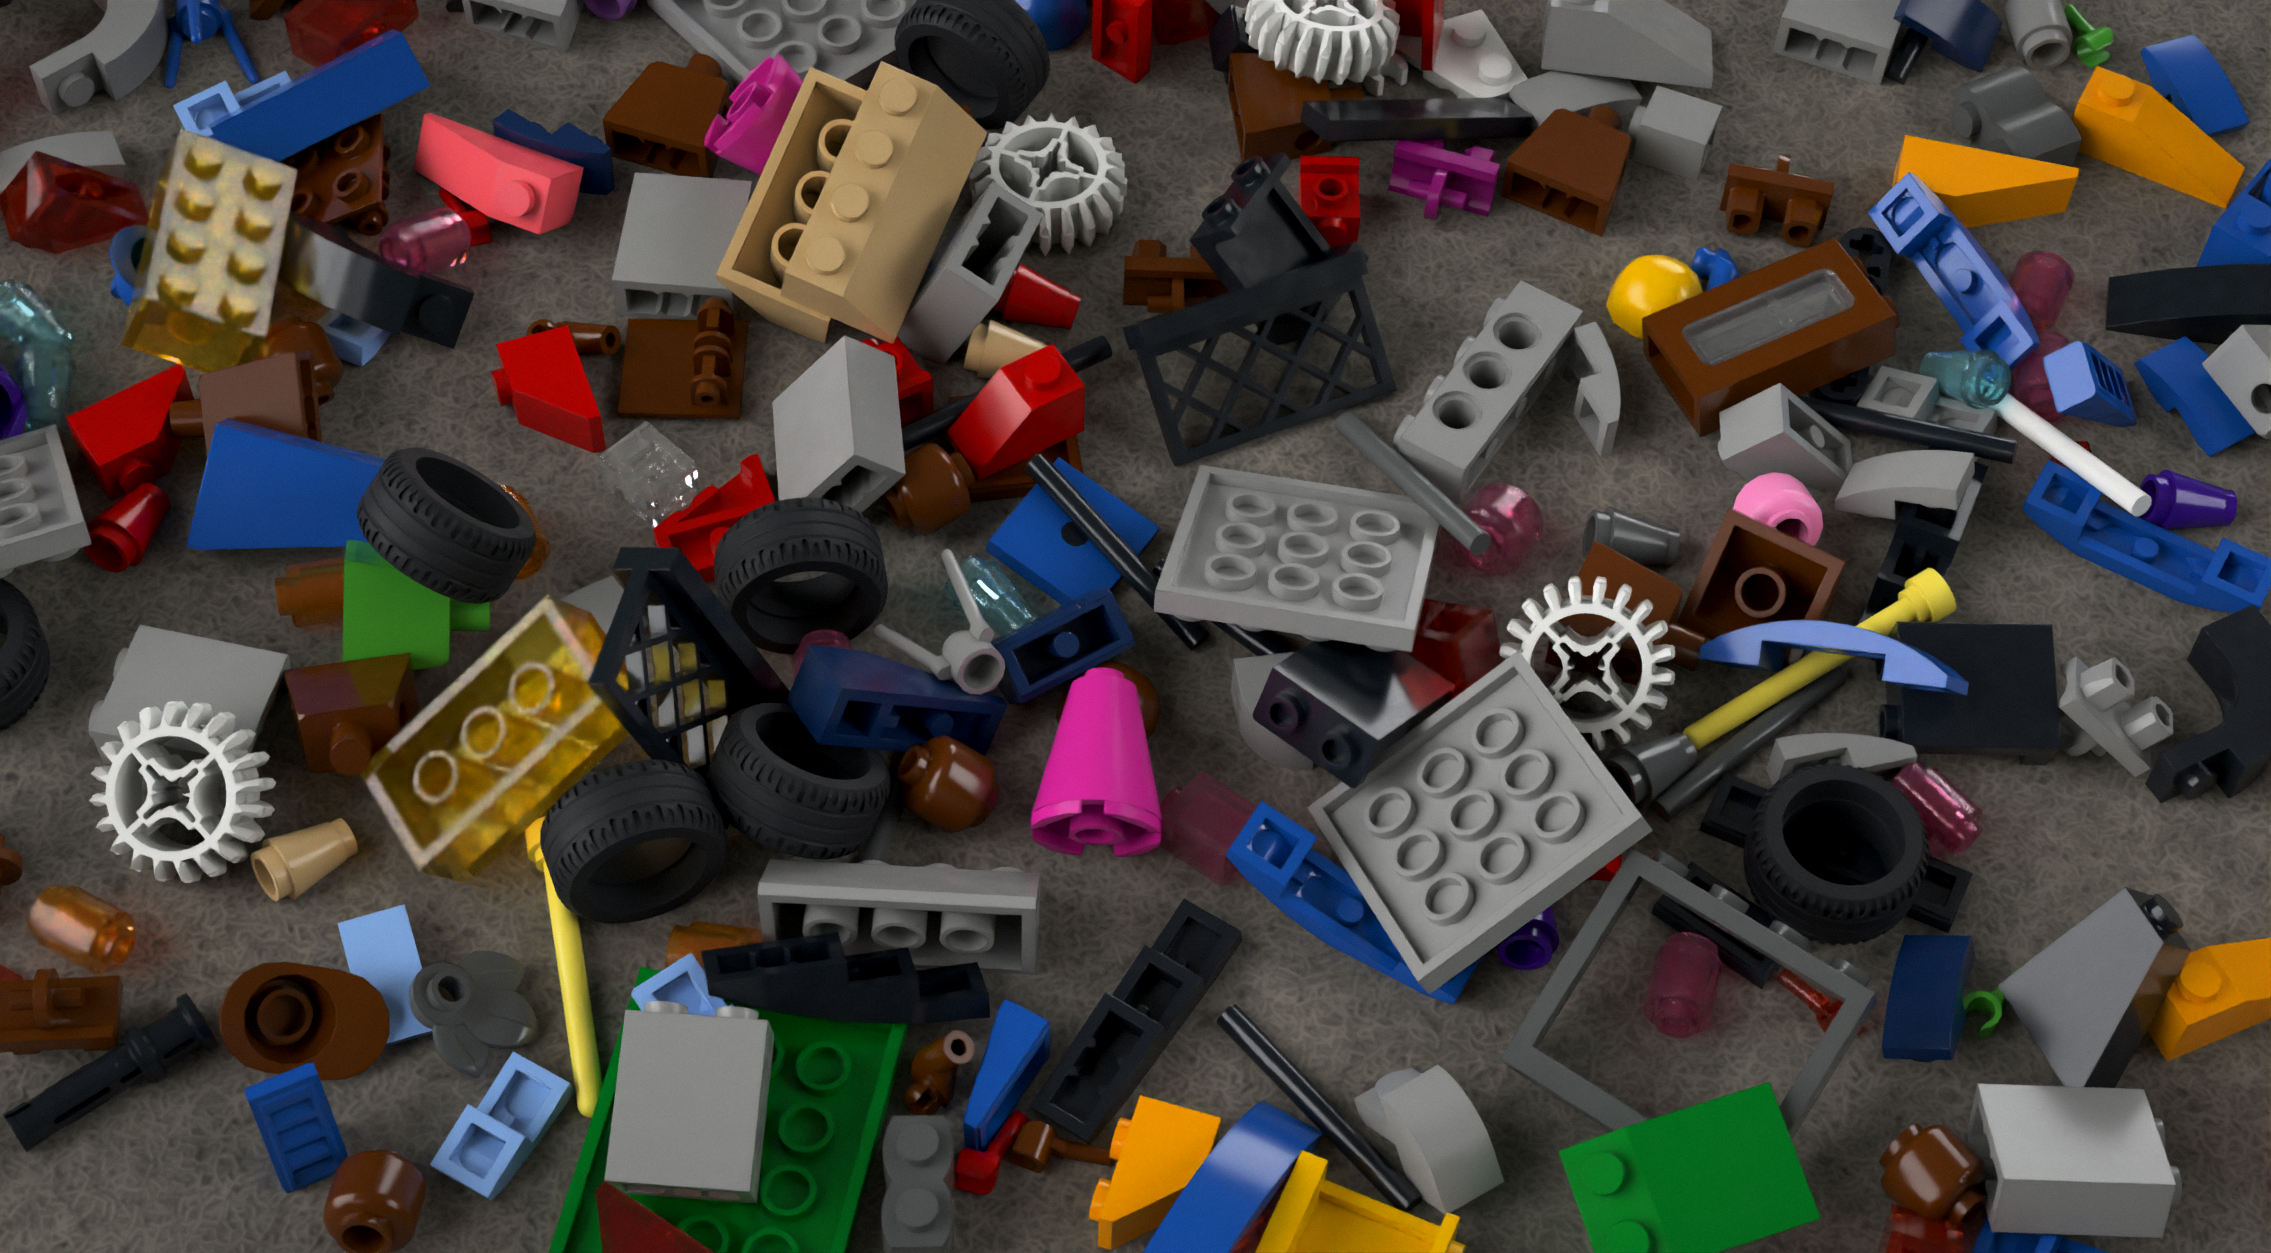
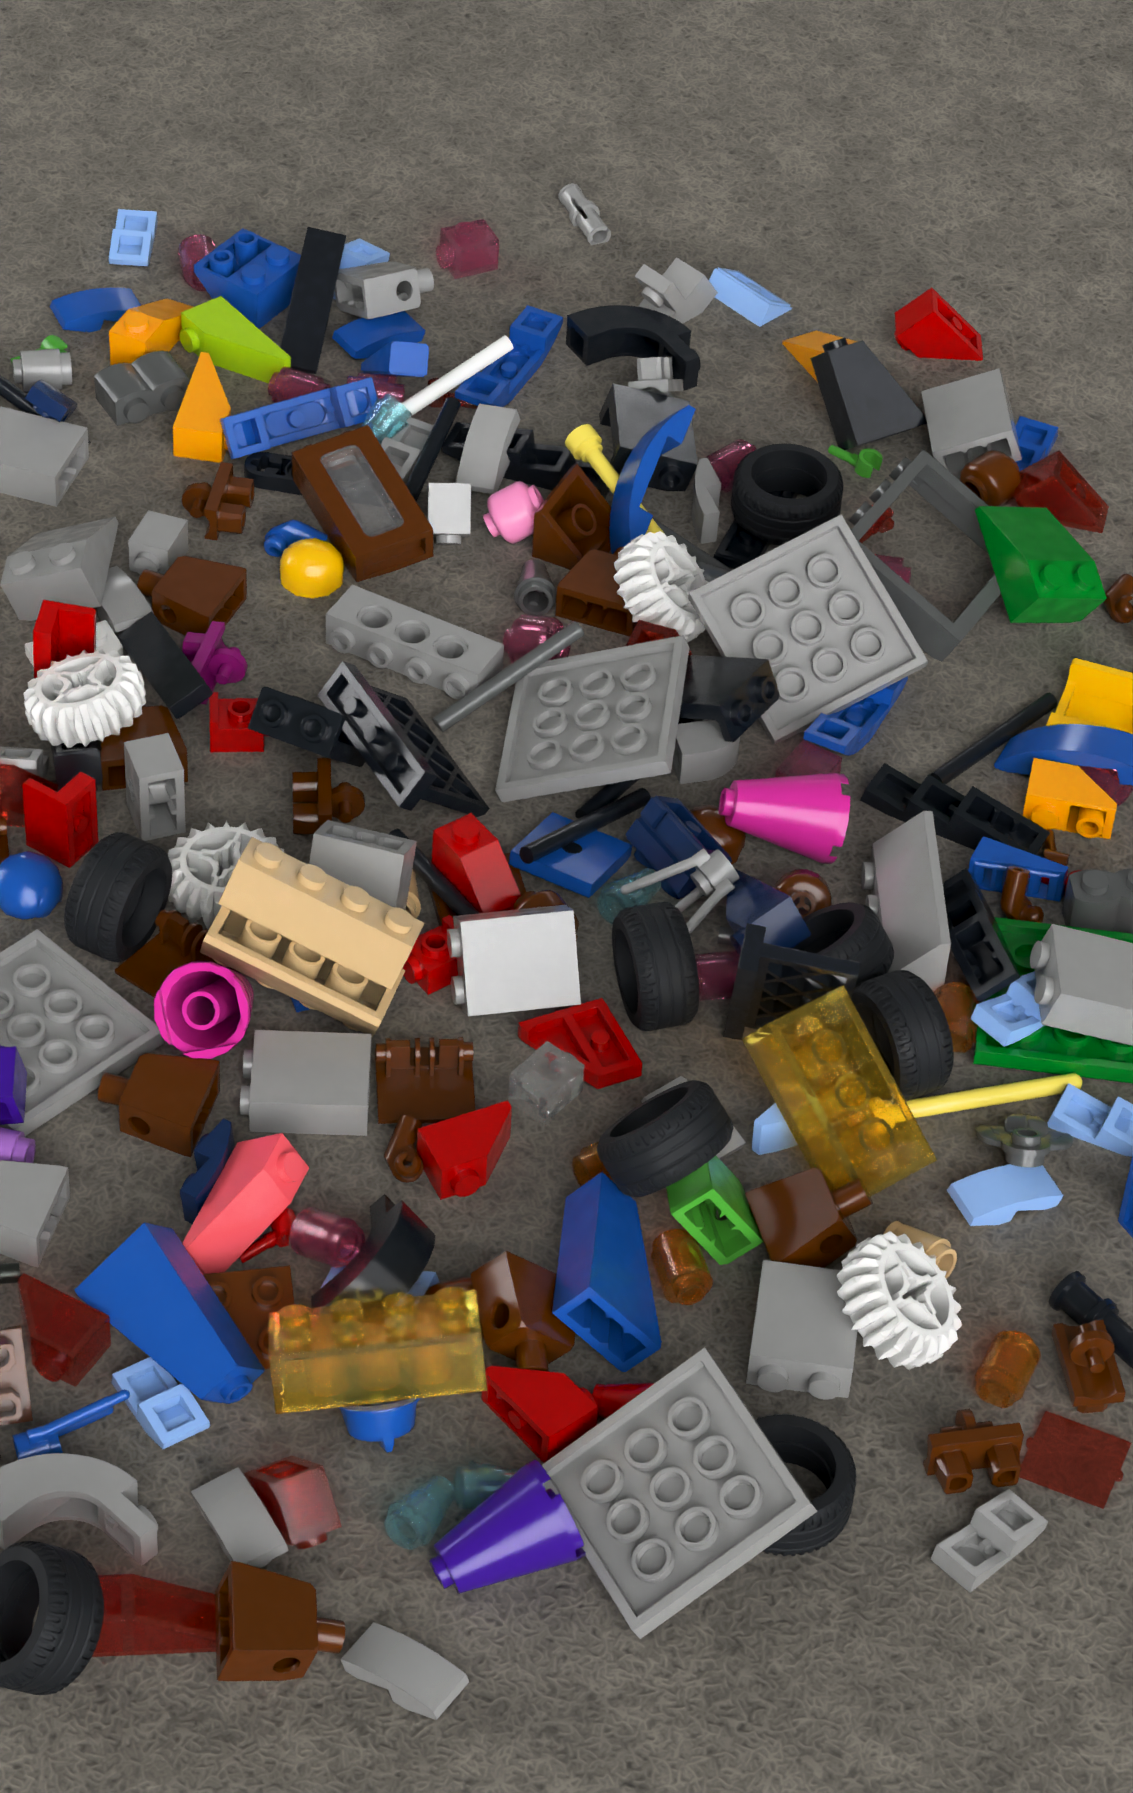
camera: 95 degrees left, 10 degrees down
(332, 1010) = (1057, 1226): reddish brown piece -> none
(1179, 98) = (155, 787): none -> light grey brick
(1435, 1134) = (1011, 672): light grey brick -> none
(1599, 387) = (417, 589): light grey slope -> none
(1926, 997) = (865, 472): dark blue slope -> none
(2148, 212) = (231, 340): none -> lime slope
(2187, 502) = (468, 343): dark purple cone -> none

